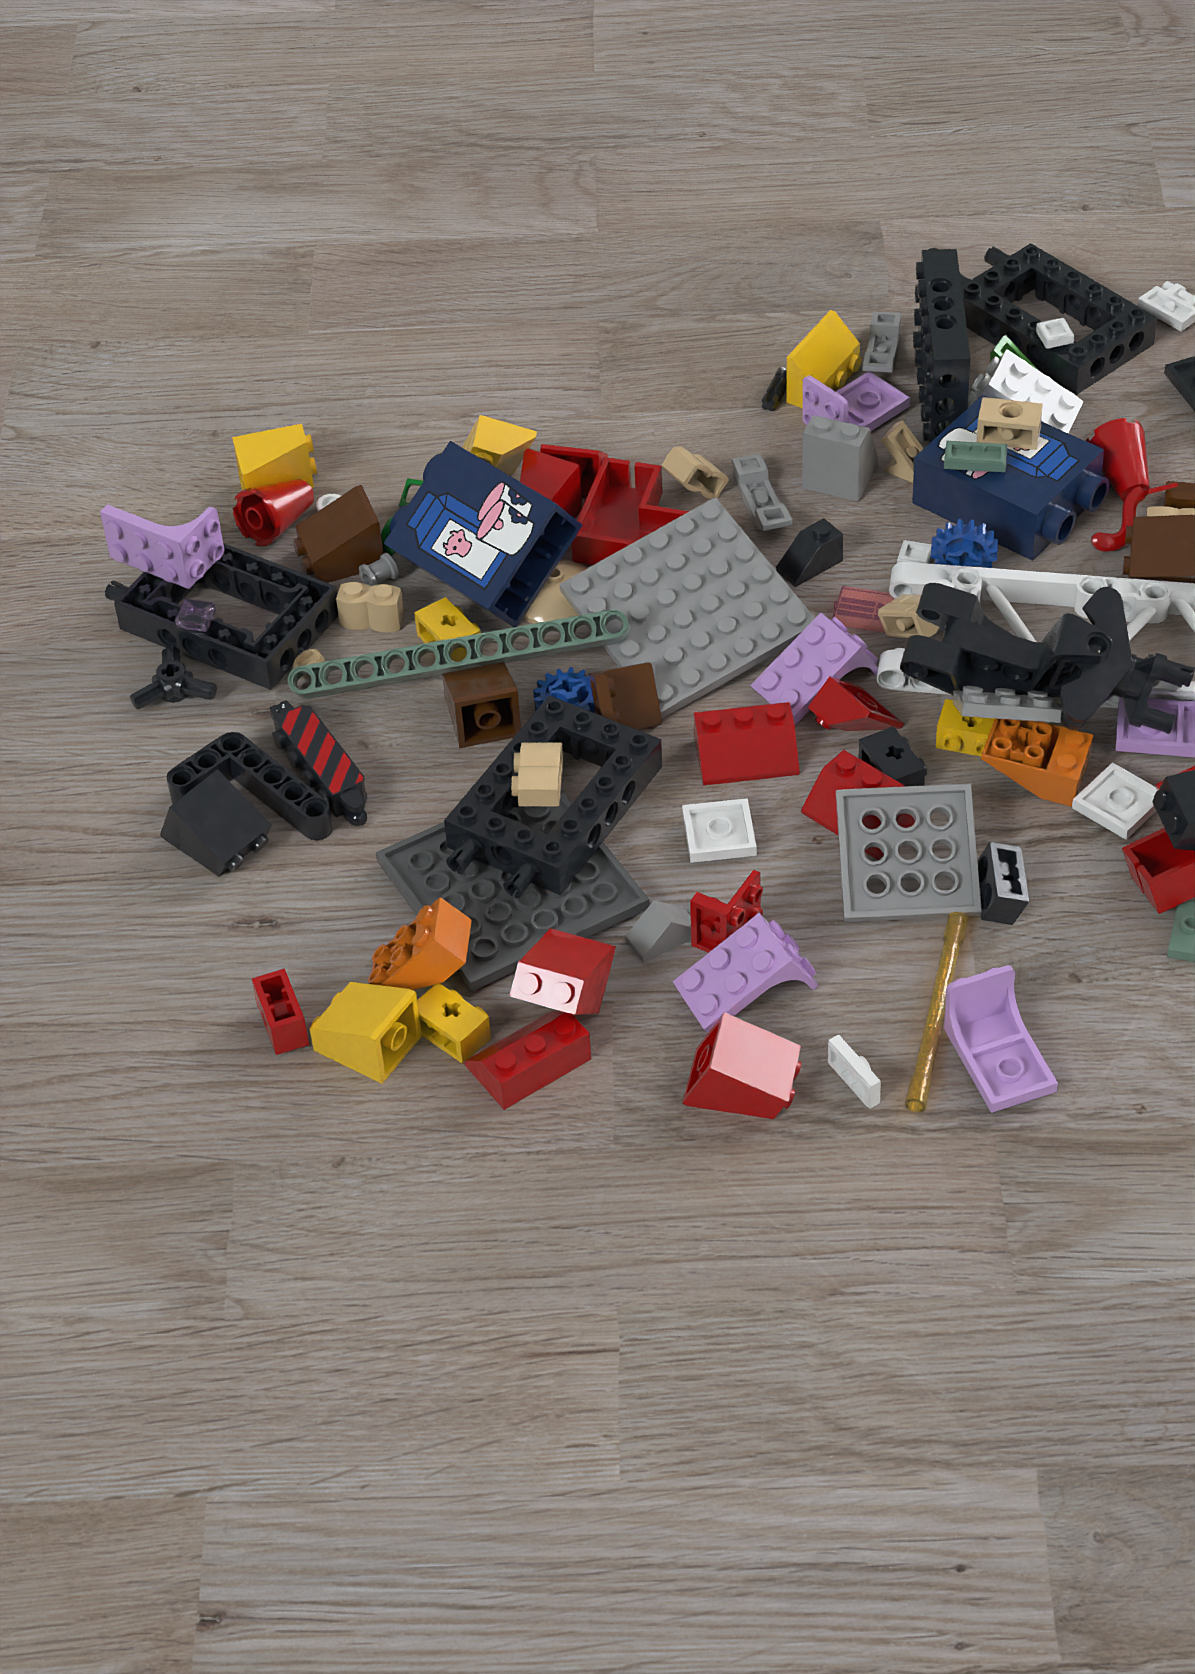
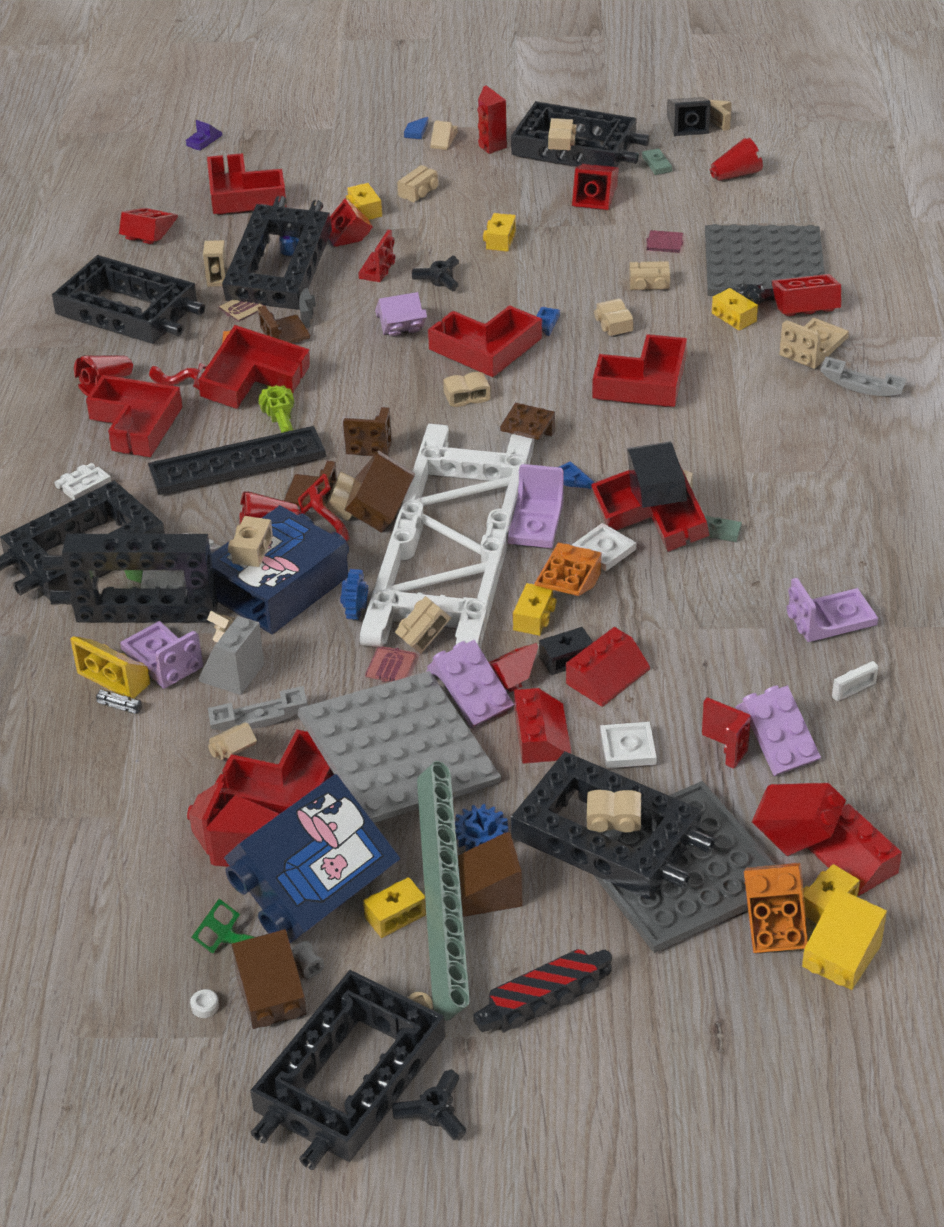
camera: 90 degrees left, 5 degrees down
(170, 552) = (306, 1090): lavender bracket -> none
(195, 615) = (380, 1068): clear purple tile -> none
(215, 825) = (622, 1059): black slope -> none
(259, 774) = (563, 1030): black beam -> none
(271, 509) = (218, 1036): red cone -> none
(274, 457) = (165, 1037): yellow slope -> none
(280, 1011) = (833, 997): red brick -> none
(370, 607) = (360, 952): tan brick -> none
(499, 443) = (198, 863): yellow slope -> none
(627, 695) = (499, 788): reddish brown bracket -> none
(659, 930) = (728, 779): light grey slope -> none
(743, 1070) = (863, 736): slope -> none
(812, 553) = (329, 678): black slope -> none
(882, 342) = (59, 633): light grey slope -> none
(894, 901) = (674, 663): light grey piece -> none
(915, 552) = (337, 633): white tile -> none
(921, 1080) = (730, 632): clear yellow piece -> none
(975, 456) = (283, 562): sand green plate -> none
(1002, 883) = (690, 593): black brick -> none
(1006, 704) = (537, 574): light grey plate -> none
(1055, 333) = (127, 524): white tile -> none
(1072, 662) = (511, 520): black piece -> none

